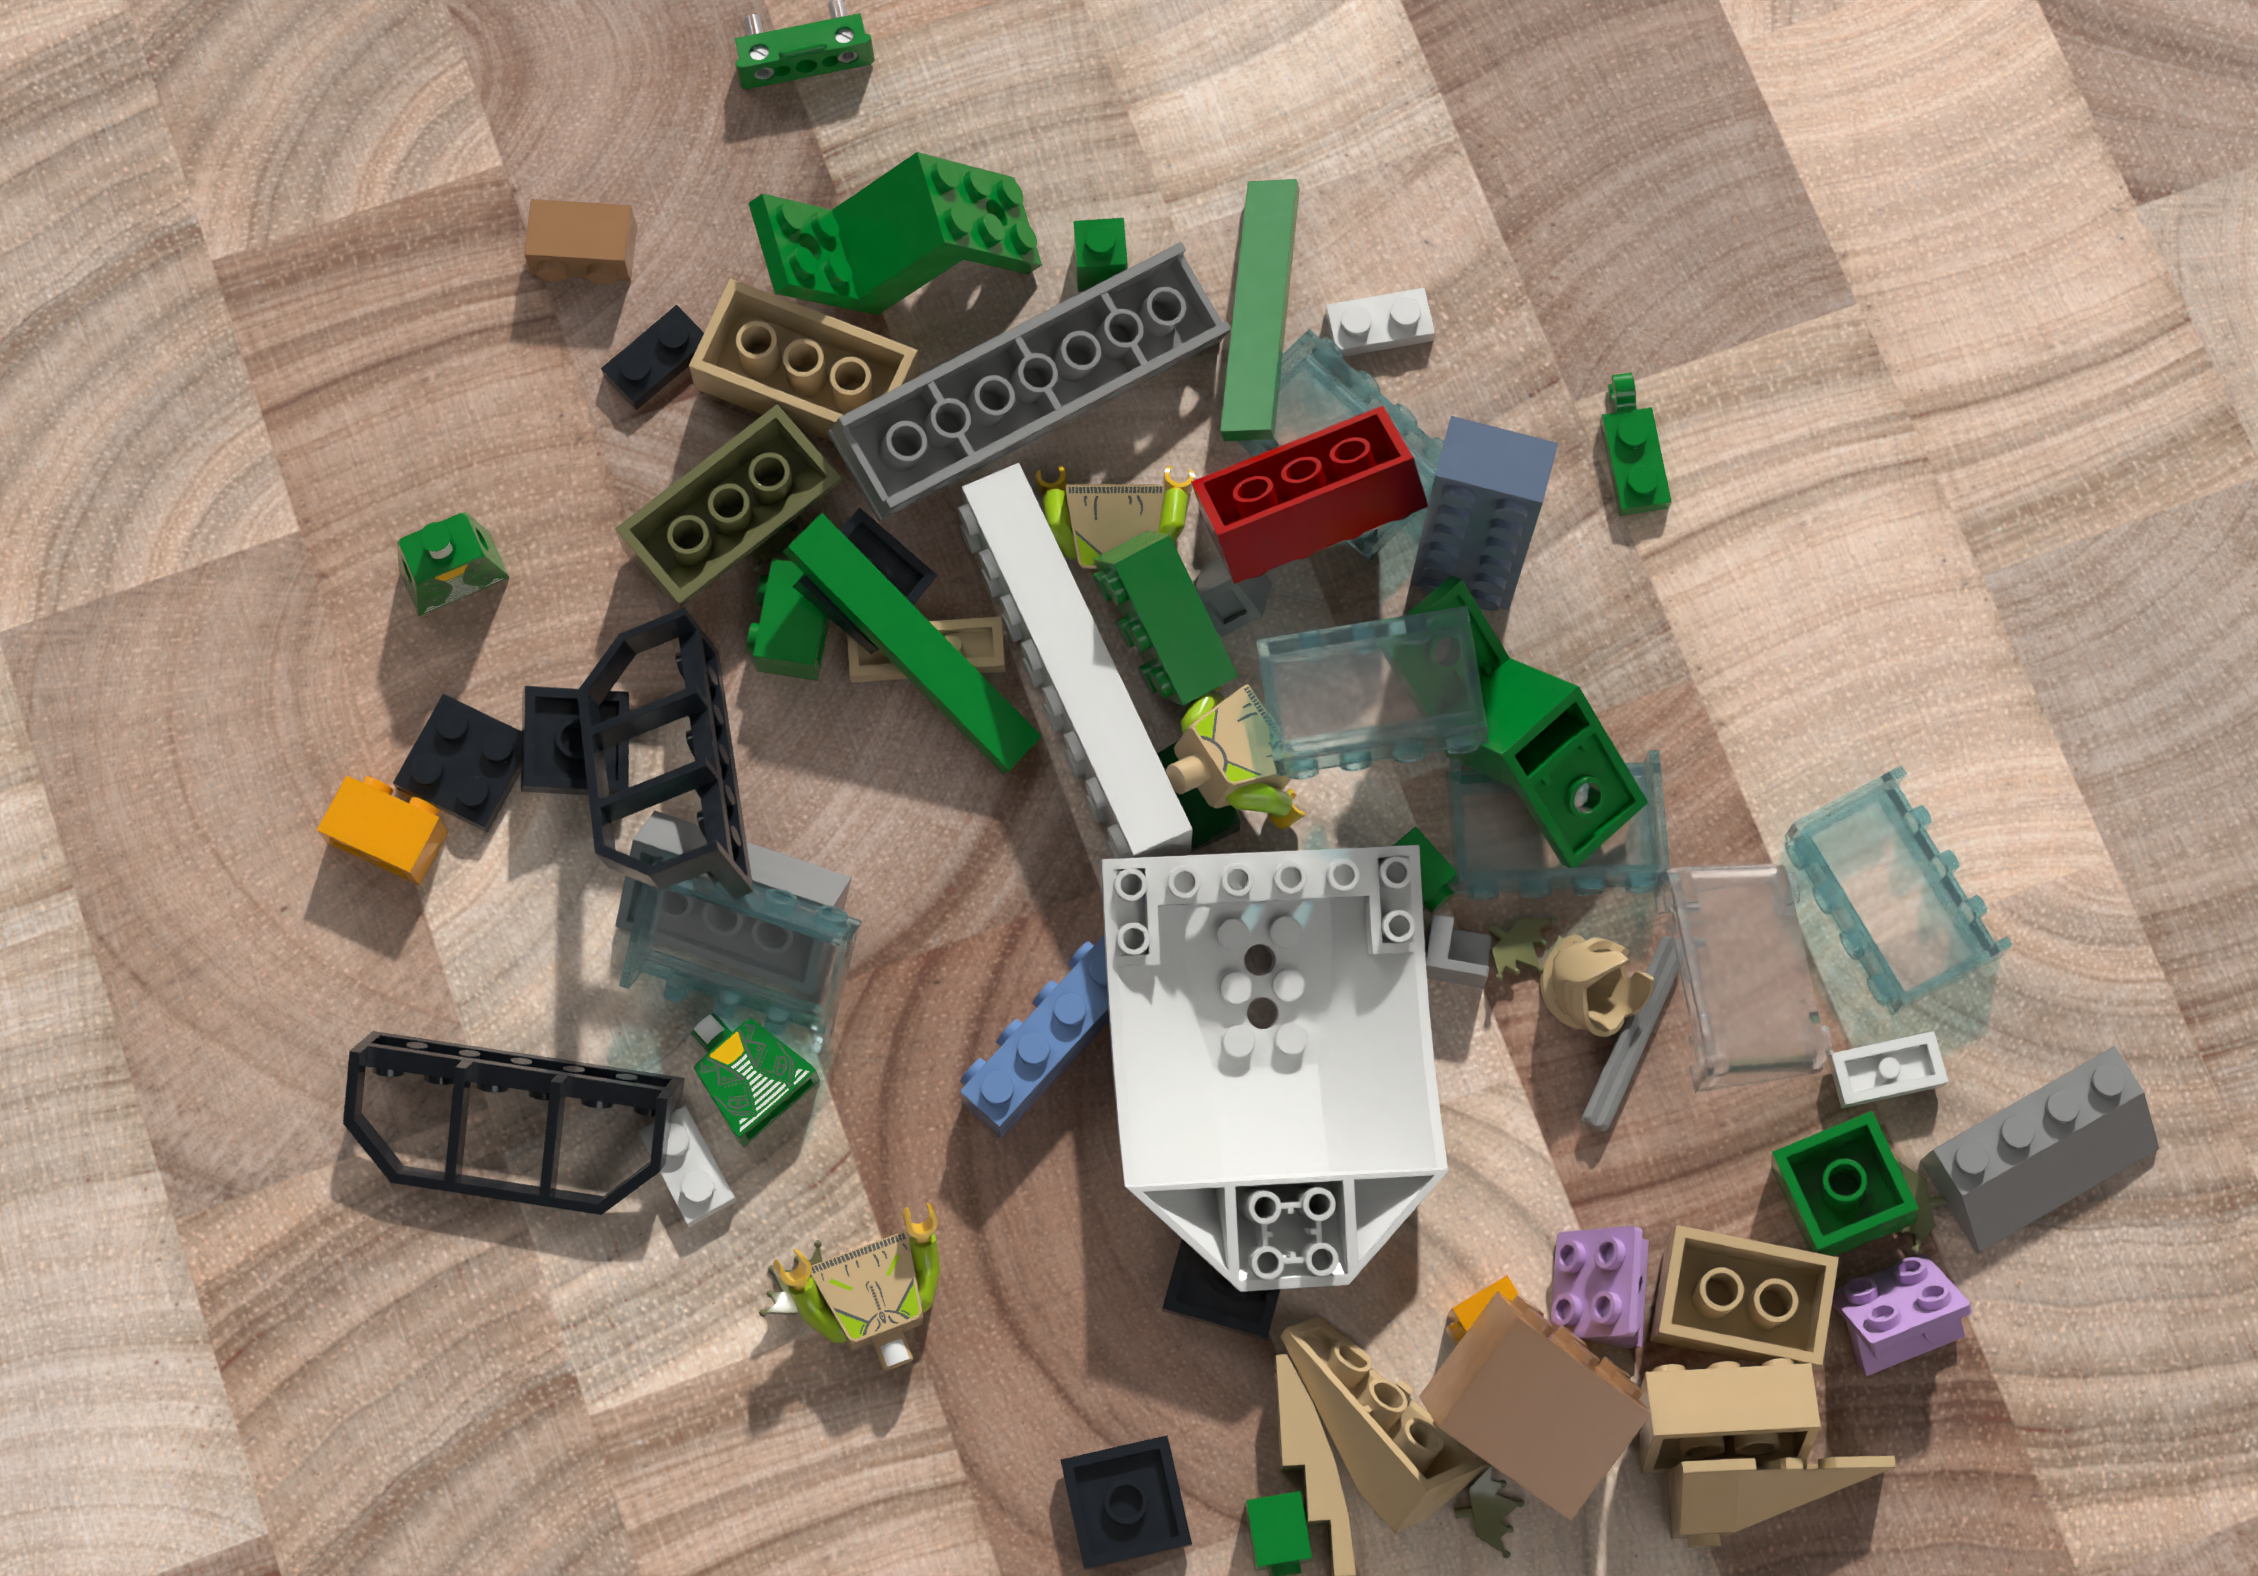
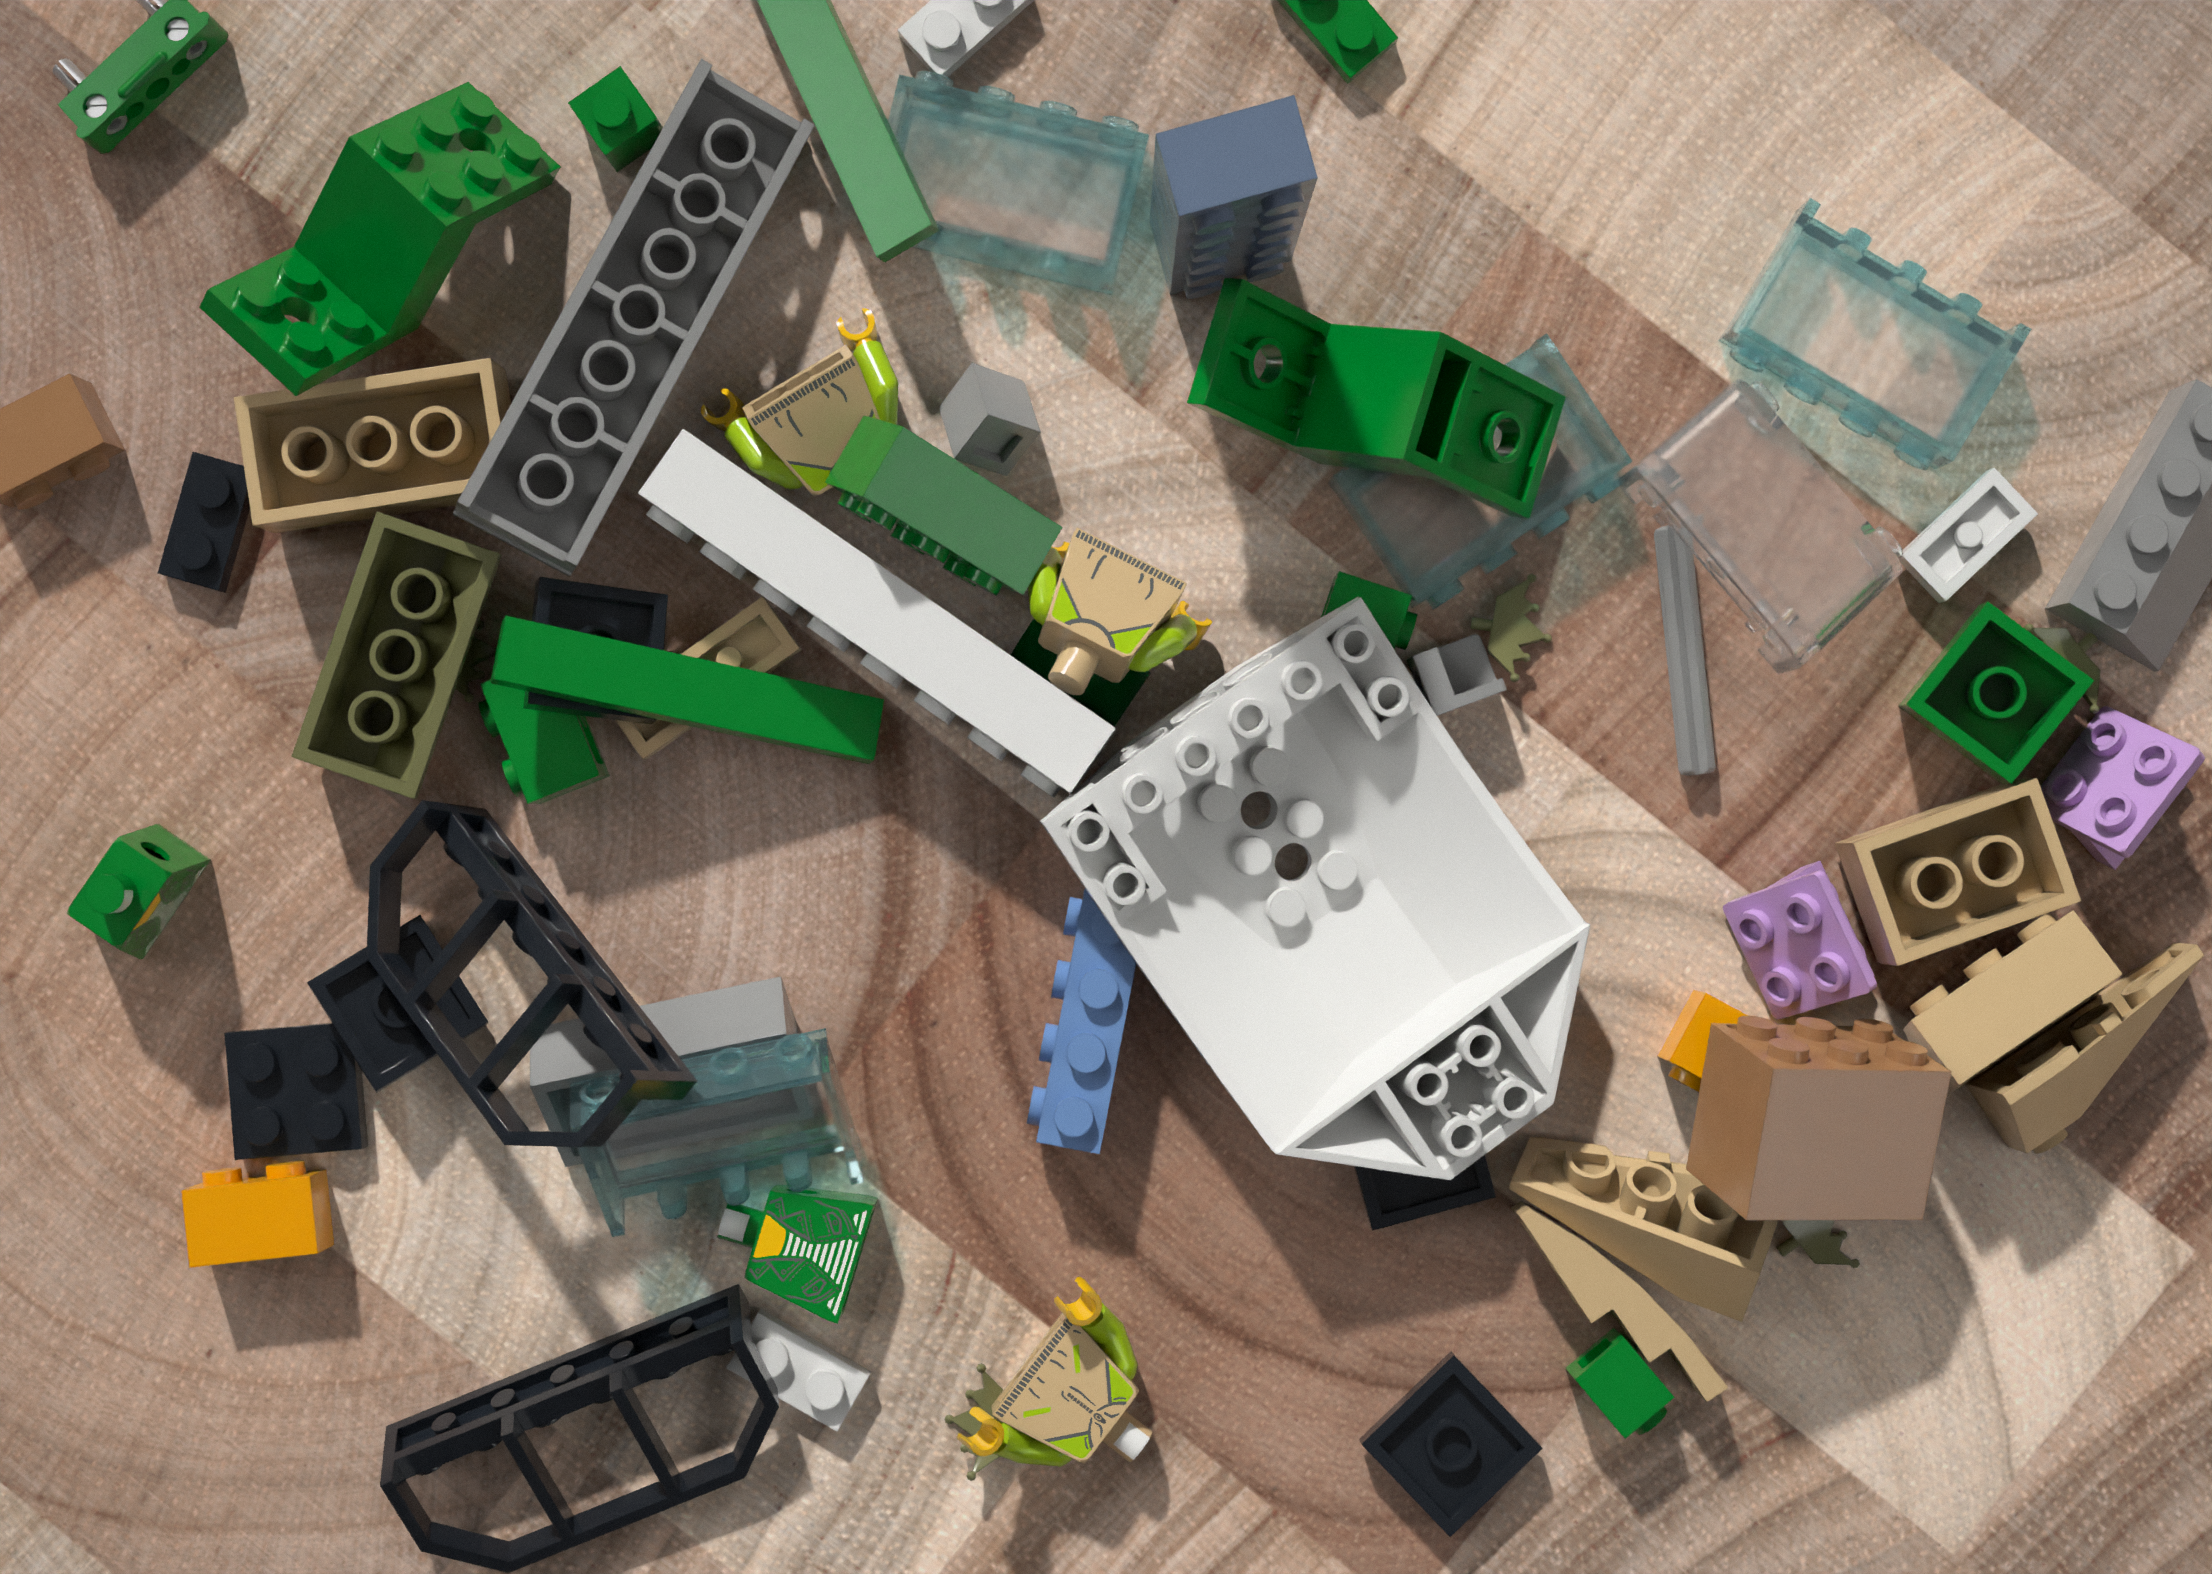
camera: 30 degrees left, 15 degrees up
(1310, 494) = (1018, 273): red brick -> none
(1372, 693) = (1223, 468): window -> none
(1588, 985) = (1614, 630): tan helmet -> none

